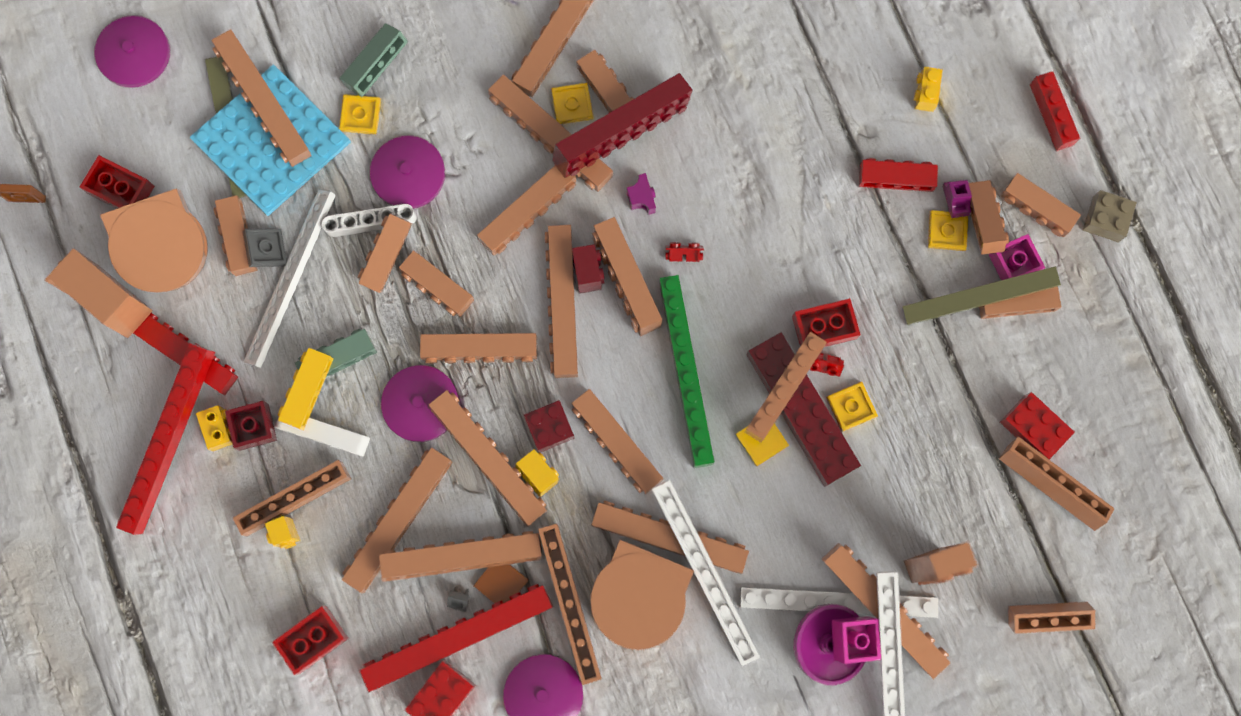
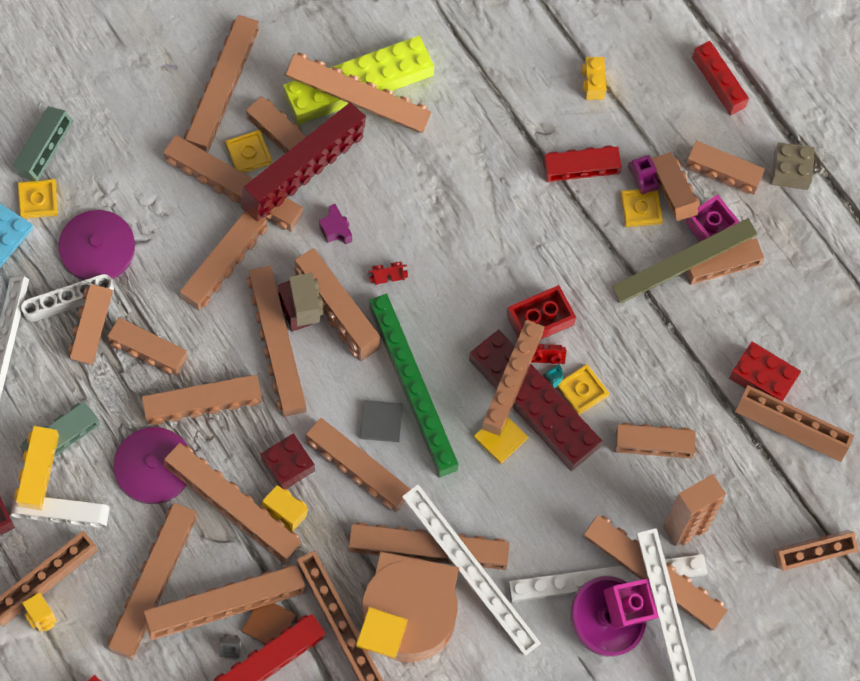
camera: 15 degrees left, 10 degrees down
(594, 266) = (306, 299): none -> dark tan brick
(605, 623) = (382, 633): none -> yellow tile
(648, 401) = (381, 421): none -> dark grey tile
(688, 64) = (358, 93): none -> nougat brick
(694, 49) = (386, 68): none -> neon yellow brick
(827, 387) = (554, 375): none -> teal tile
(913, 474) = (655, 441): none -> nougat brick

